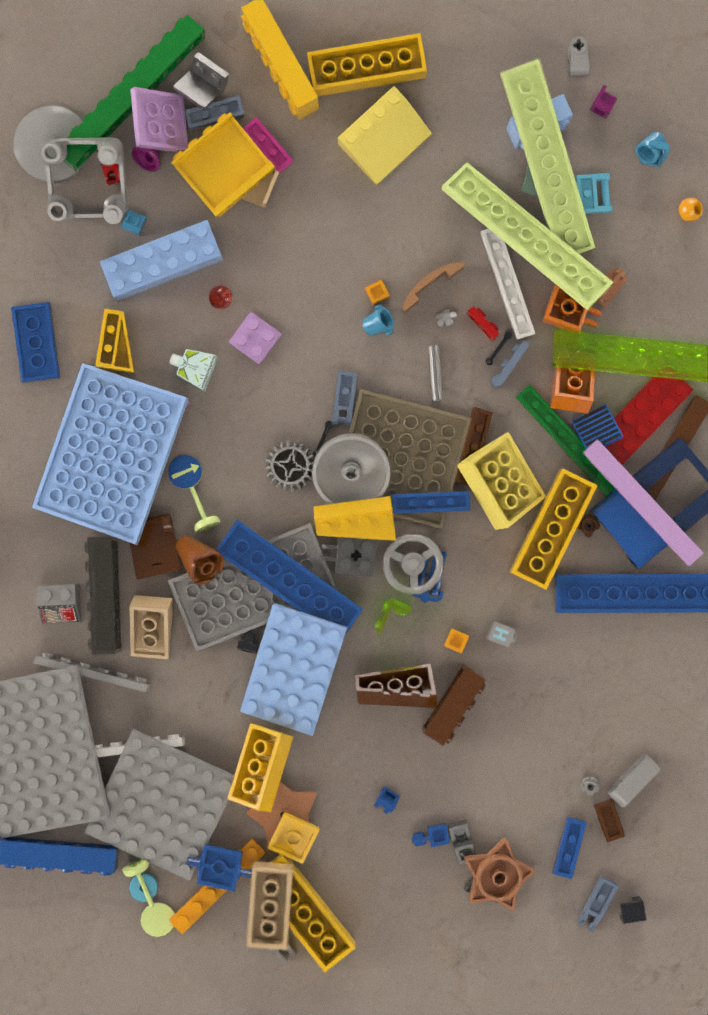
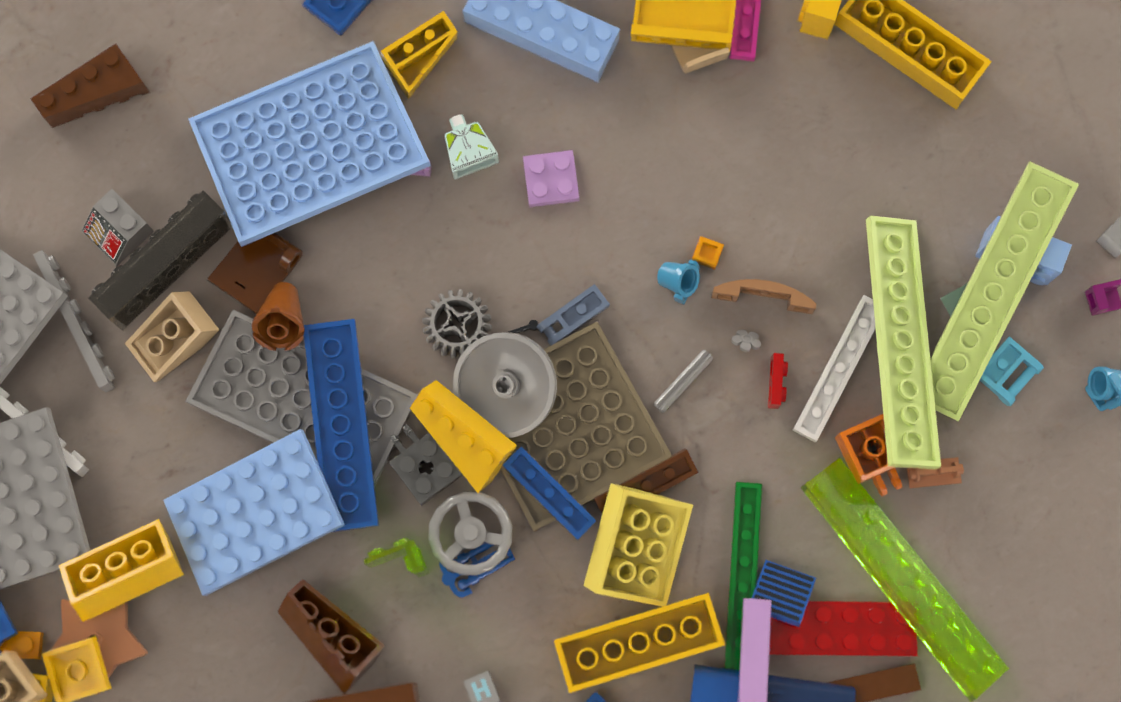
camera: 45 degrees right, 10 degrees down
(186, 473) = (355, 232): piece -> none
(220, 297) = (558, 109): clear red piece -> none
(248, 645) = (239, 445): black tile -> none
(384, 135) = (863, 120): light yellow slope -> none
(456, 640) = (433, 652): light orange plate -> none
(489, 361) = (788, 418): black hinge -> none
(508, 365) = (761, 445): sand blue plate -> none
(573, 390) = (797, 531): orange slope -> none
(593, 525) = (671, 683): reddish brown plate -> none
(690, 209) = (1089, 480): light orange piece -> none

